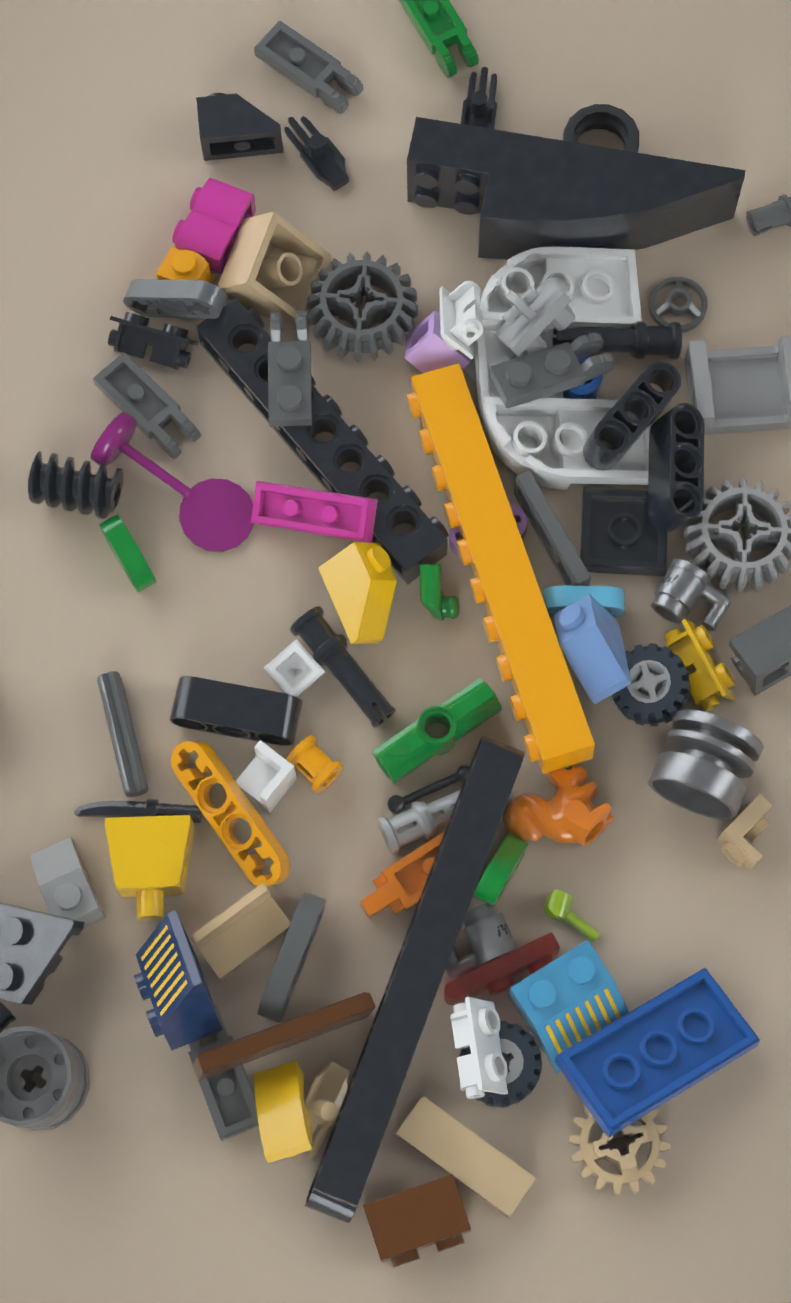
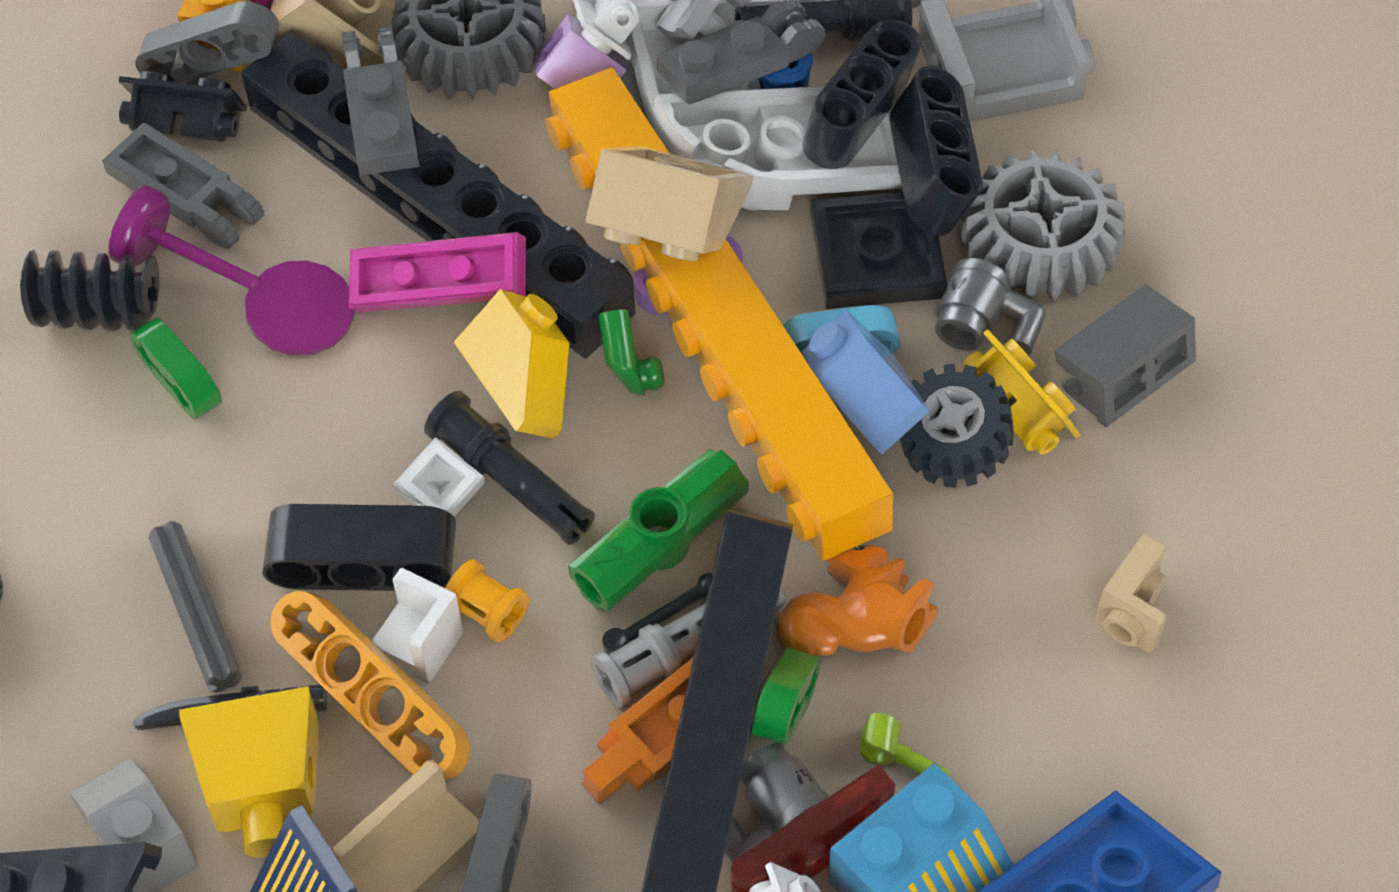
camera: 10 degrees left, 15 degrees down
(479, 489) = (665, 200): none -> tan slope
(550, 531) = (783, 262): dark grey tile -> none
(706, 764) = (1057, 507): flat silver wheel -> none

